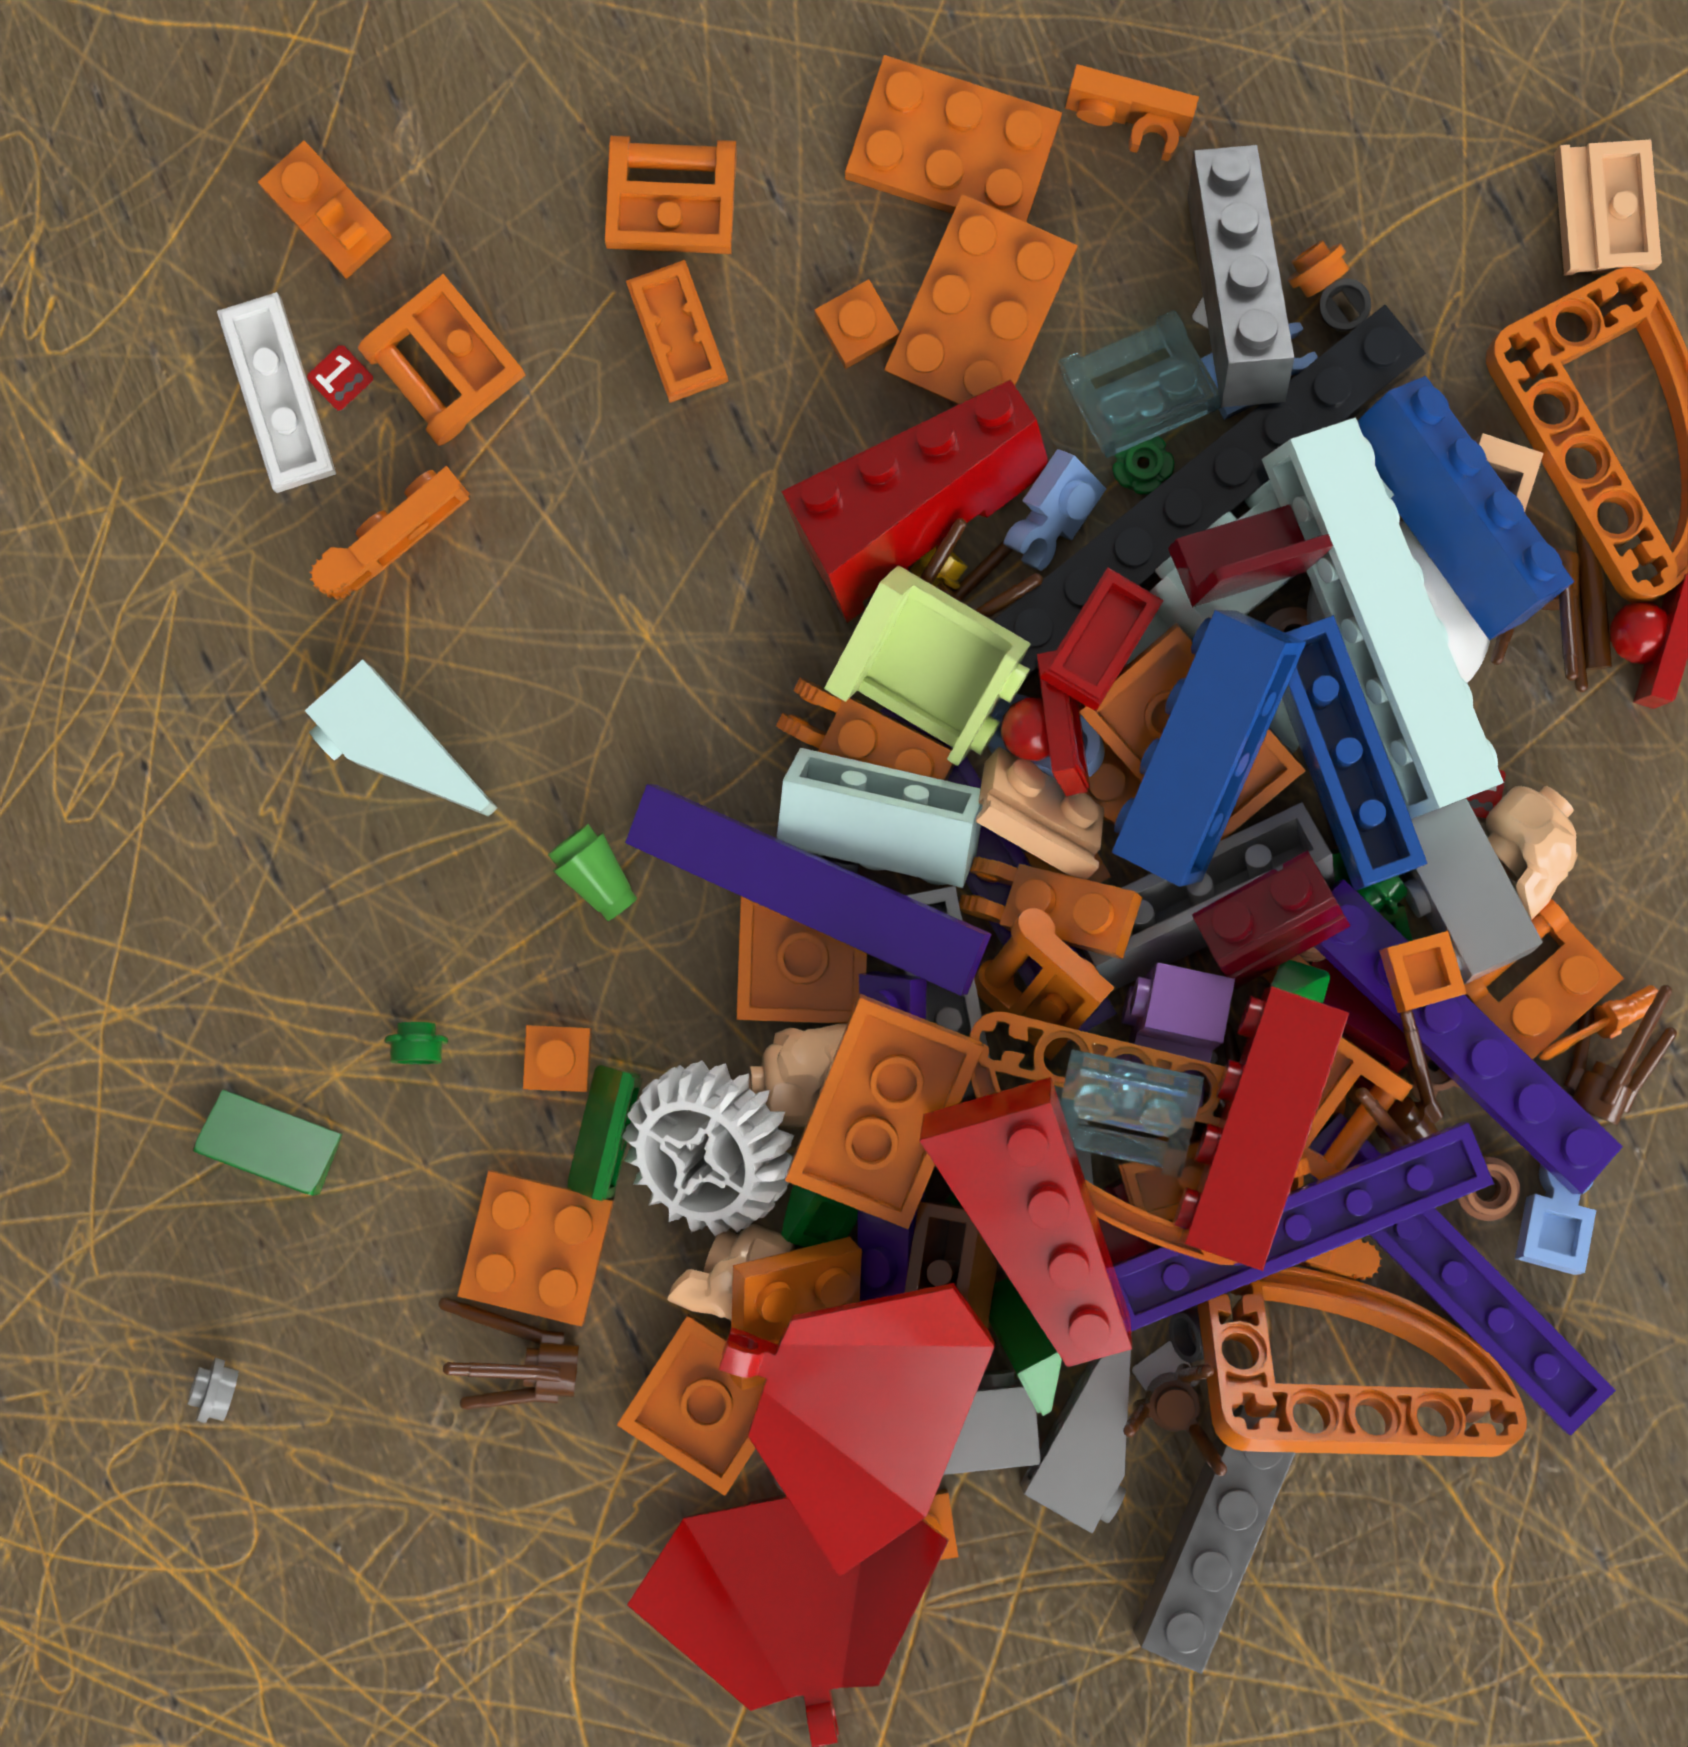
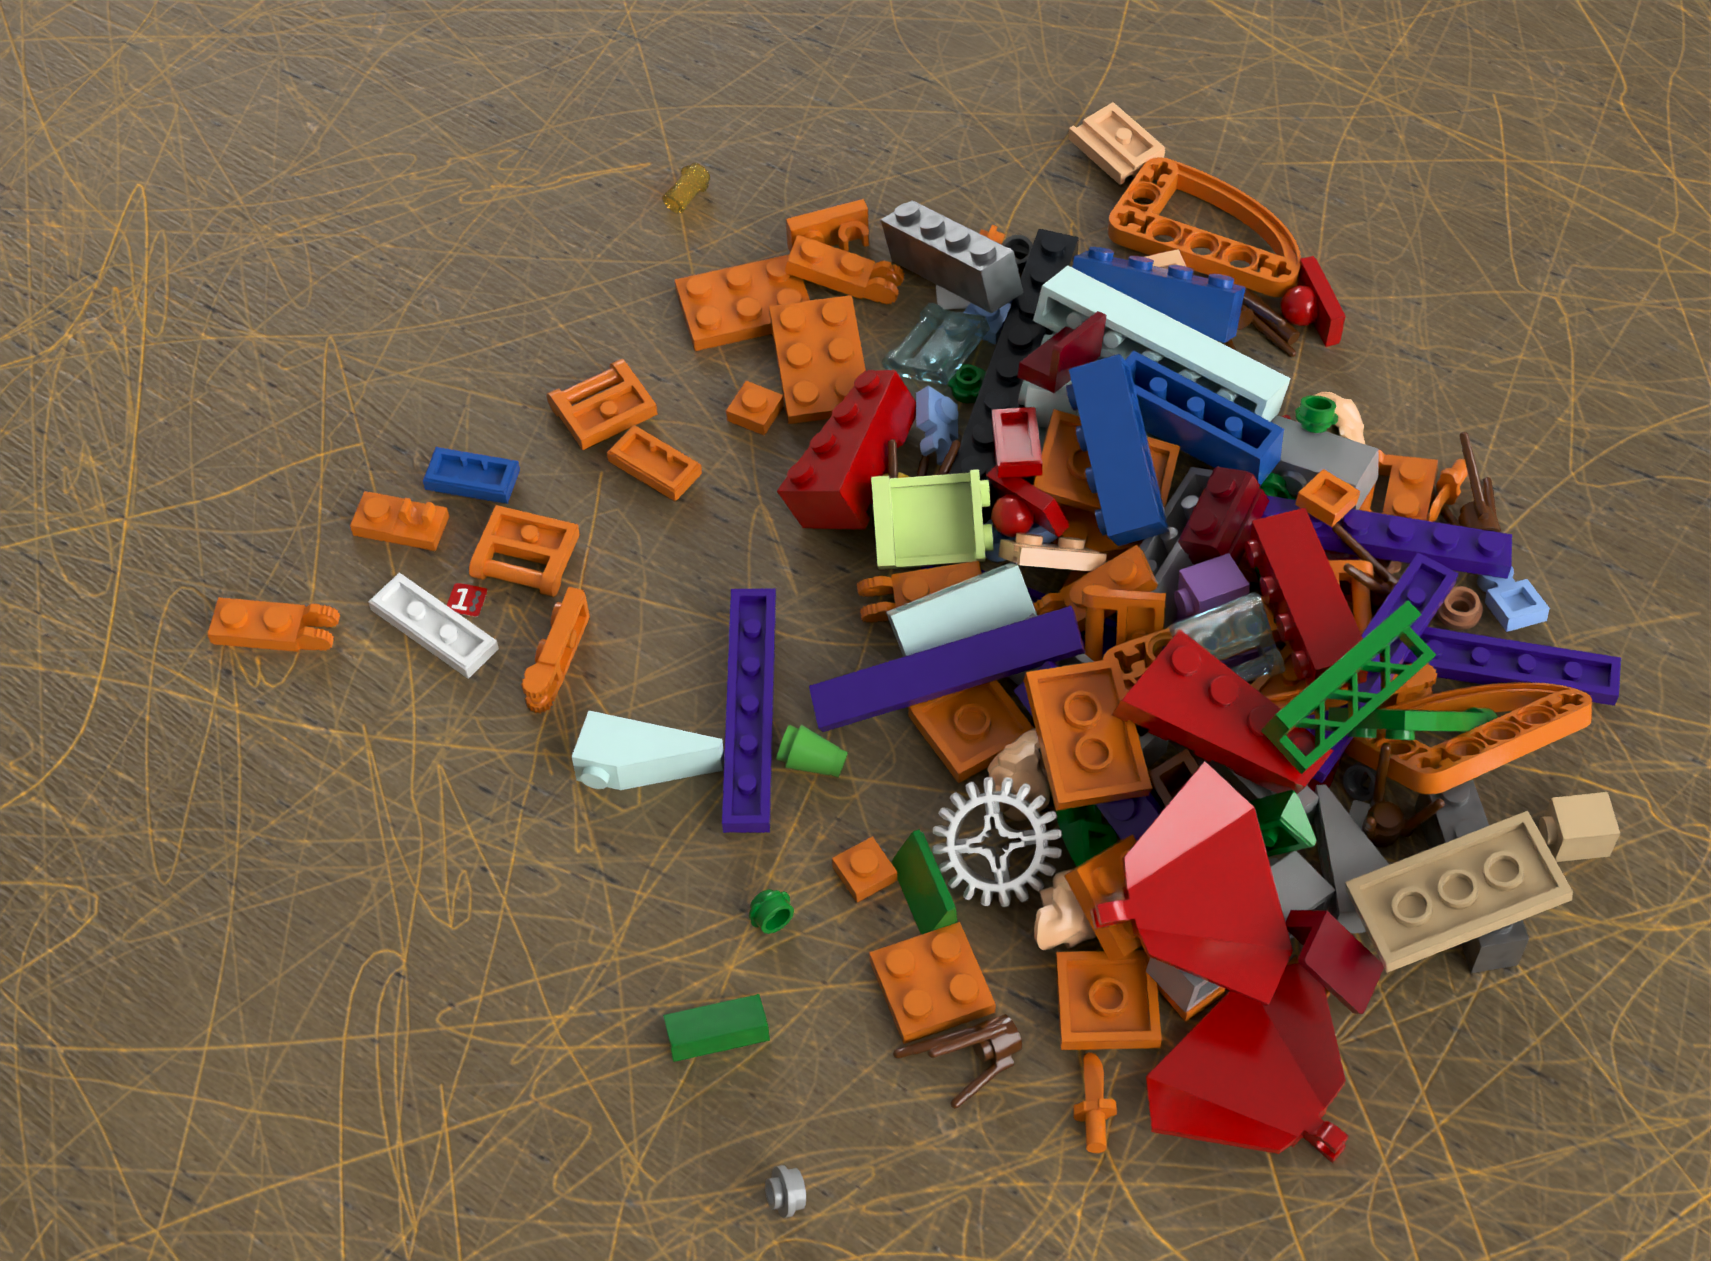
camera: 30 degrees left, 30 degrees down
(84, 263) = (272, 625): none -> orange hinge
(446, 201) = (471, 475): none -> blue plate
(563, 763) = (749, 712): none -> dark purple plate
(603, 1515) = (1094, 1108): none -> orange piece
(973, 1556) = (1335, 957): none -> dark red panel
(1101, 185) = (844, 271): none -> orange hinge
(1158, 1583) = (1458, 891): none -> tan plate
(1194, 1291) = (1343, 671): none -> green fence
(1240, 1361) = (1403, 723): none -> green plate
(1386, 1561) = (1580, 827): none -> tan brick
(1515, 833) = (1316, 413): none -> green plate

